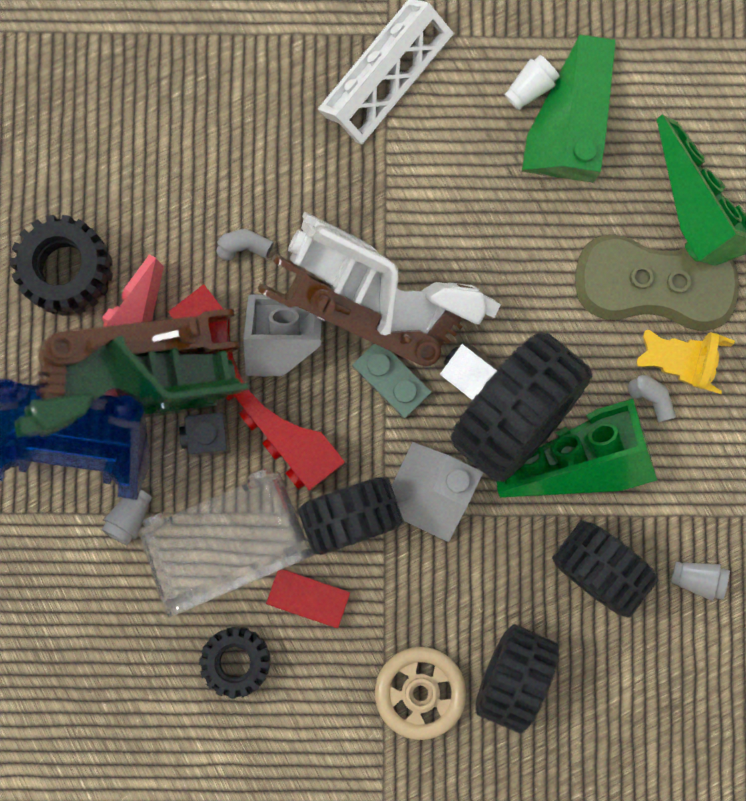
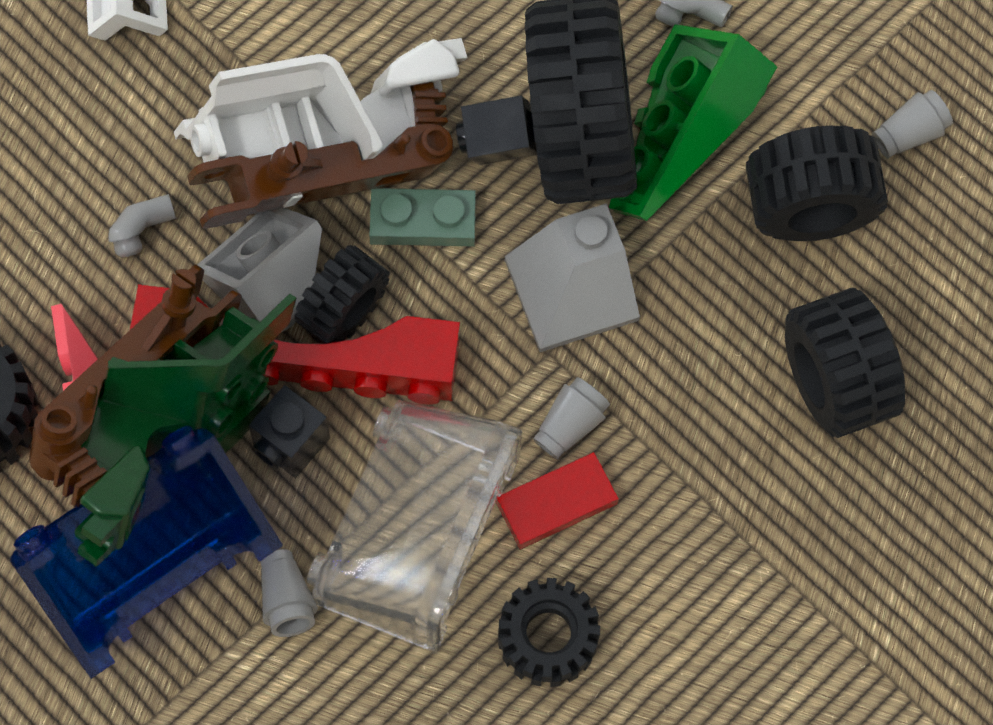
camera: 45 degrees left, 15 degrees down
(300, 389) = (342, 295): none -> black tyre
(350, 515) = (519, 360): black tyre -> none
(357, 563) = (571, 417): none -> light grey cone
(449, 709) = (765, 439): tan plate -> none

